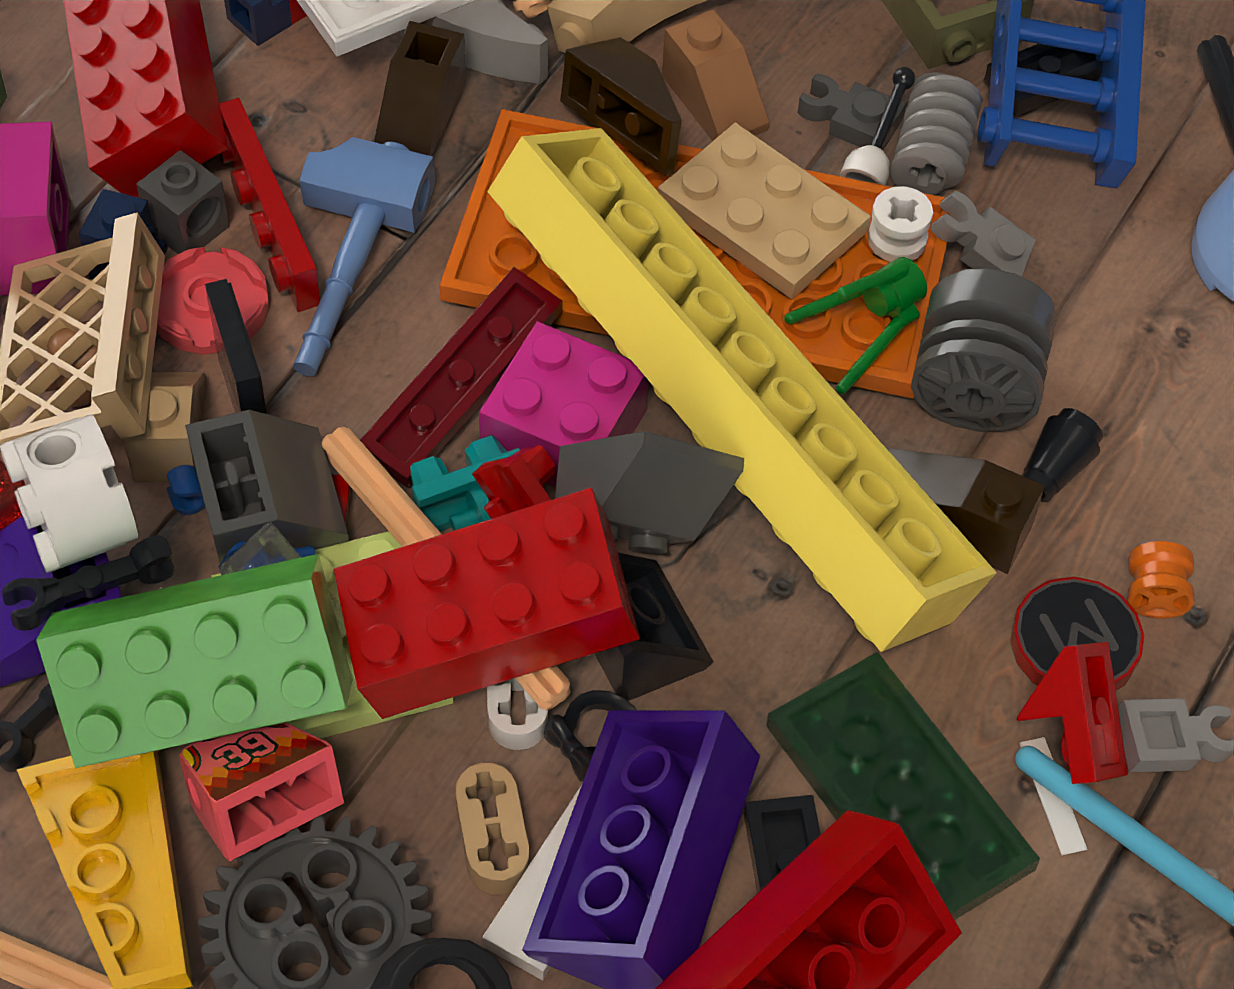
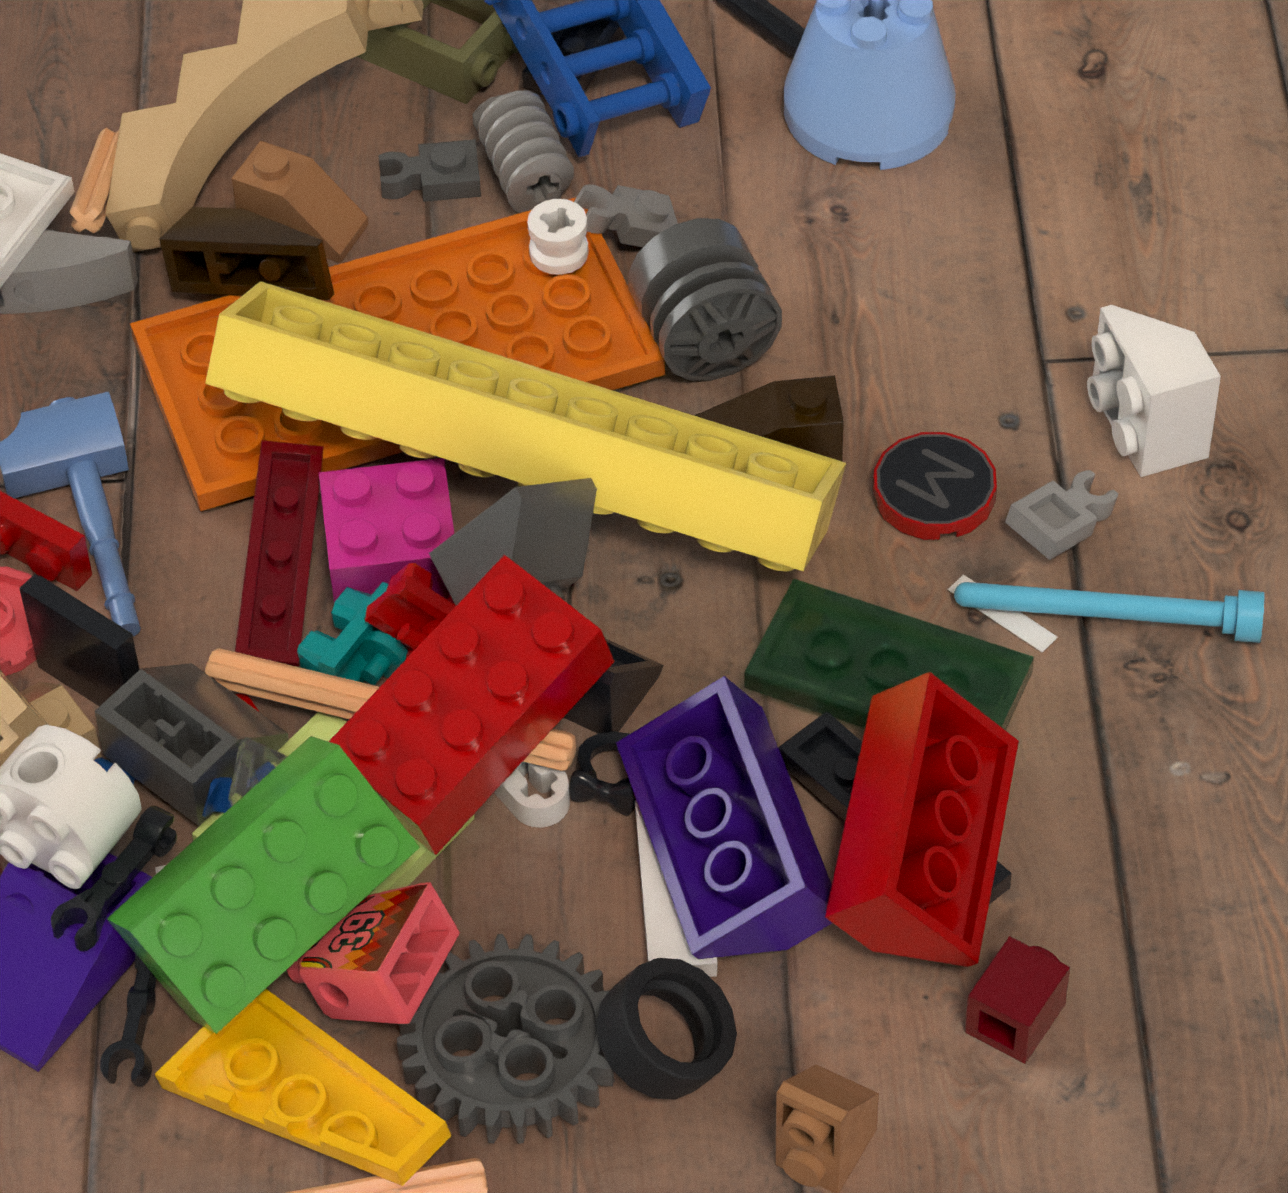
camera: 30 degrees left, 5 degrees down
(422, 87) = (45, 339): dark brown slope -> none
(477, 830) = (595, 880): tan beam -> none
(764, 210) = (435, 282): tan plate -> none
(870, 161) = (485, 202): hinge -> none
(888, 292) = (589, 297): green plant -> none
(1063, 450) = (818, 342): black cone -> none
(1084, 694) = (977, 514): red slope -> none
(1161, 579) = (969, 403): orange wheel -> none

